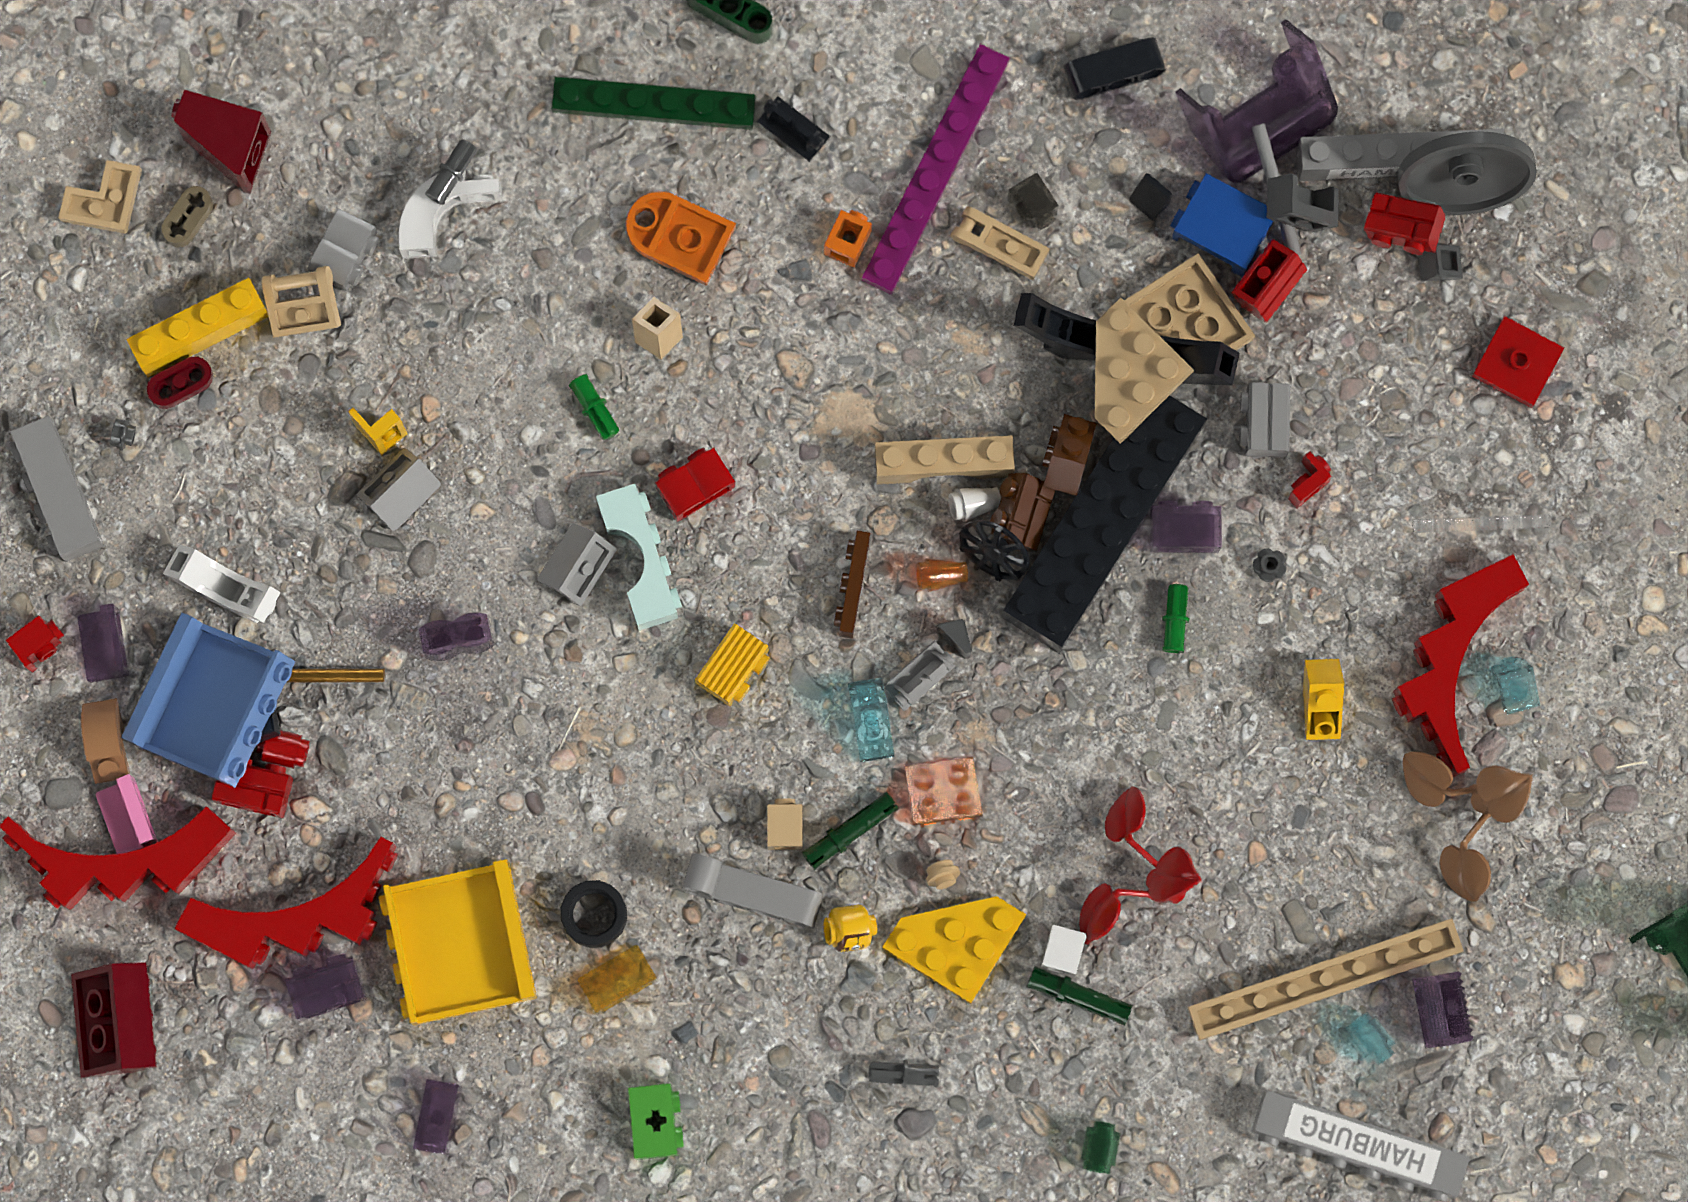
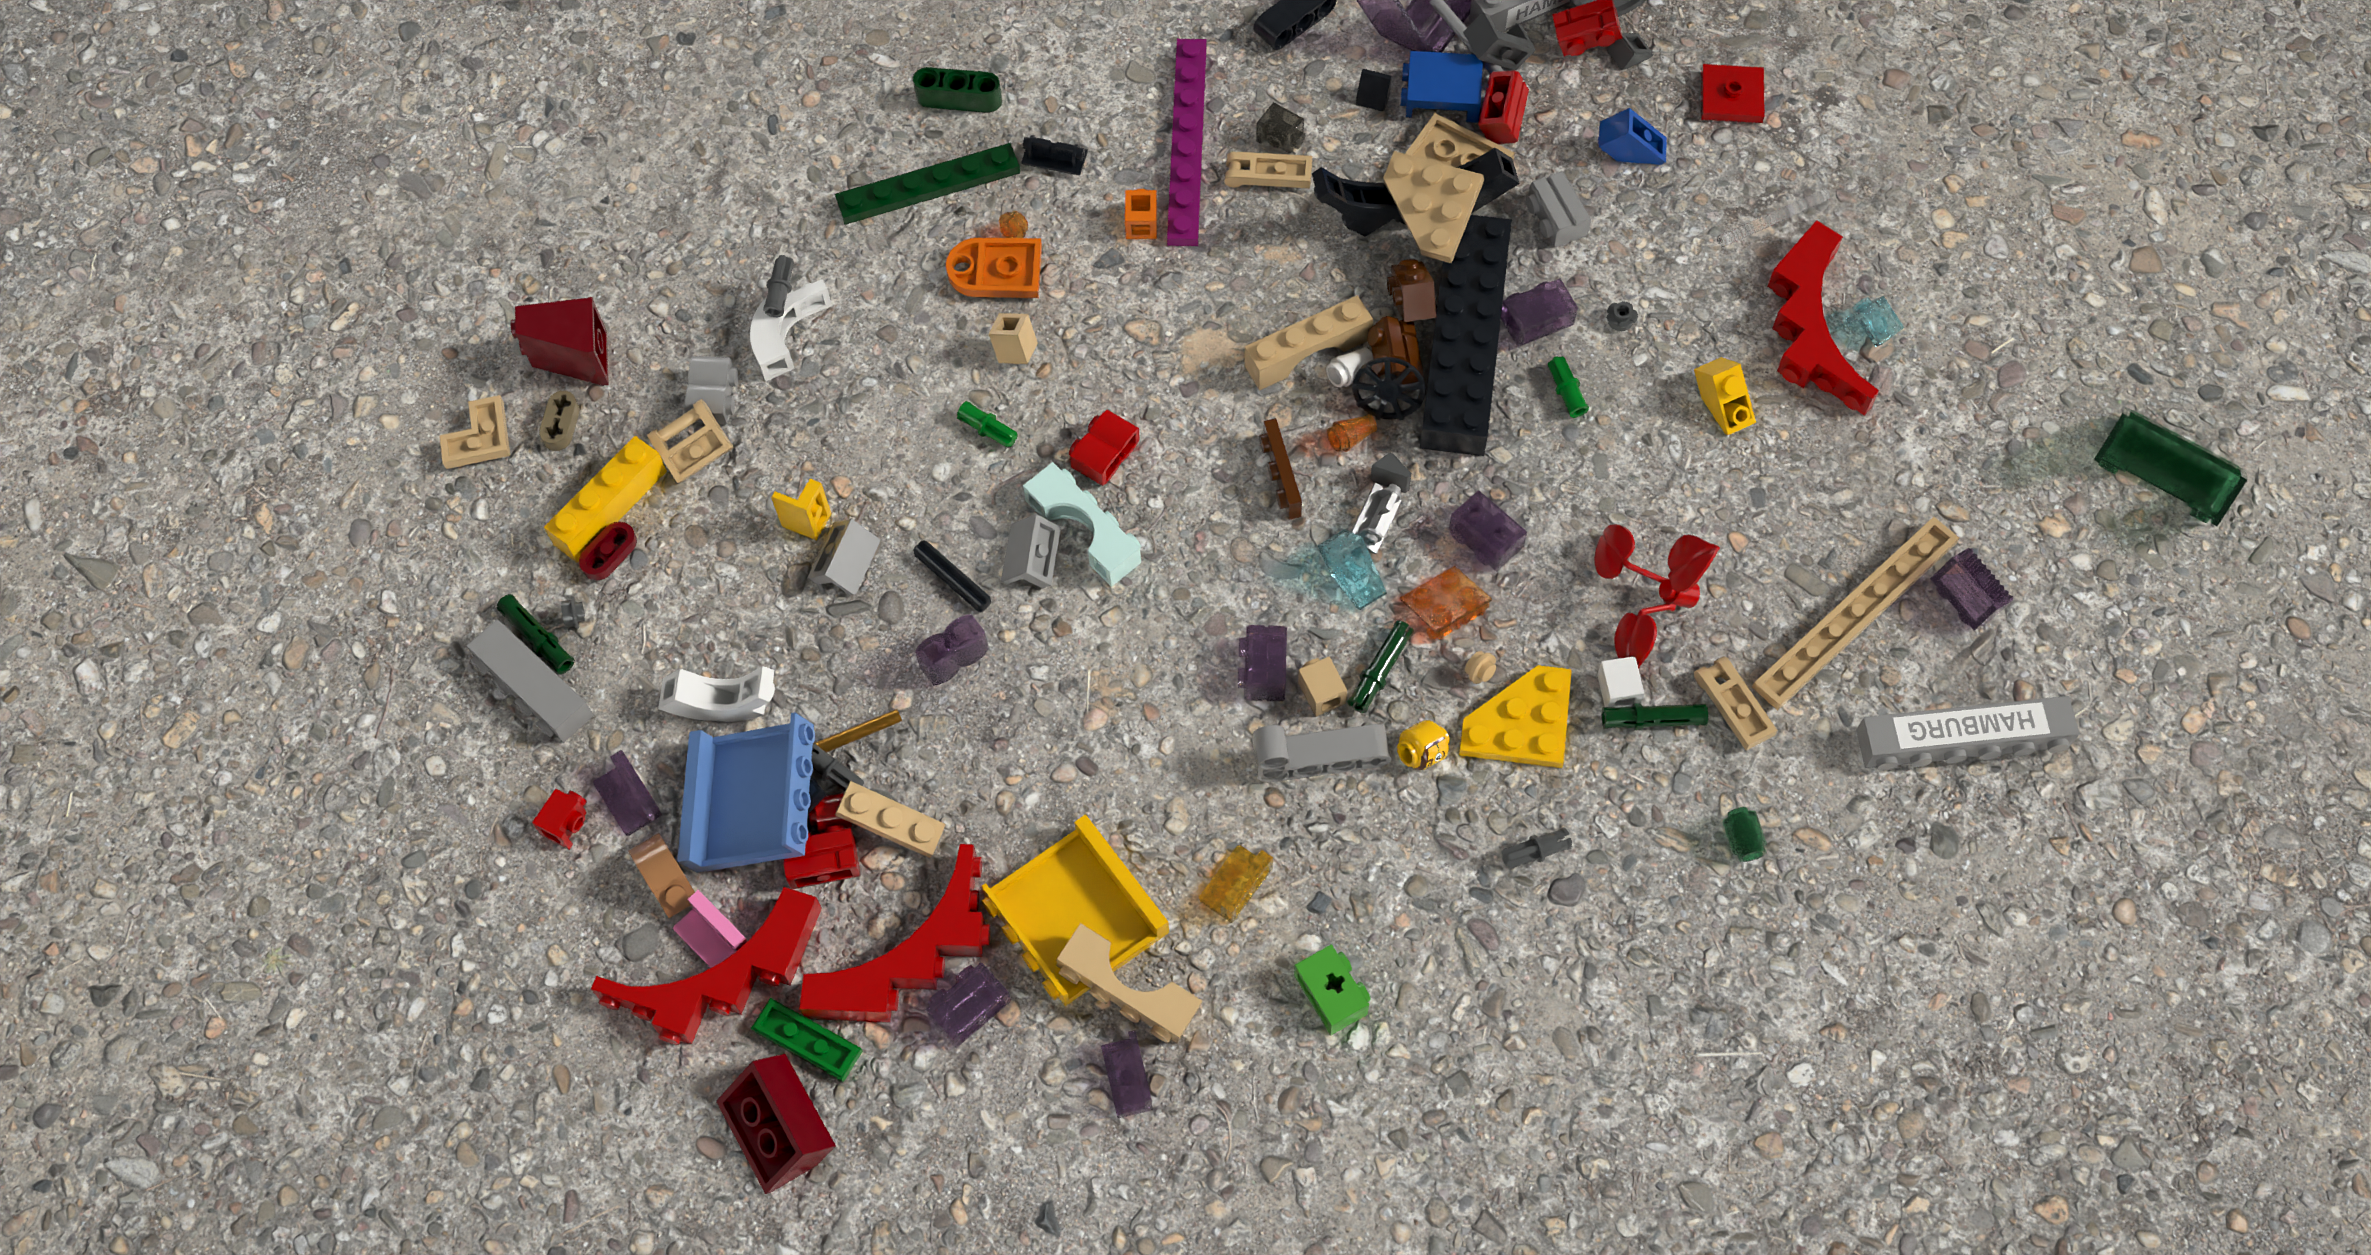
camera: 20 degrees left, 15 degrees down
(84, 453) = (544, 643): none -> dark green pin
(172, 953) = (806, 1039): none -> green tile
(300, 709) = (832, 769): none -> dark grey axle
(329, 781) = (890, 819): none -> tan plate
(492, 554) = (952, 576): none -> black axle
(498, 1074) = (1165, 1009): none -> tan arch
(593, 887) = (1186, 807): black tyre -> none
(715, 194) = (1013, 225): none -> clear orange plate
(732, 665) = (1208, 575): yellow brick -> none
(742, 778) = (1264, 663): none -> clear purple brick
(1017, 739) = (1487, 531): none -> clear purple brick
(1162, 1017) = (1736, 703): none -> tan plate
(1307, 486) = (1621, 235): red bracket -> none
(1371, 1039) = (1924, 642): clear light blue brick -> none
(1383, 374) = (1632, 139): none -> blue slope
(1496, 794) = (1925, 382): medium nougat plant -> none

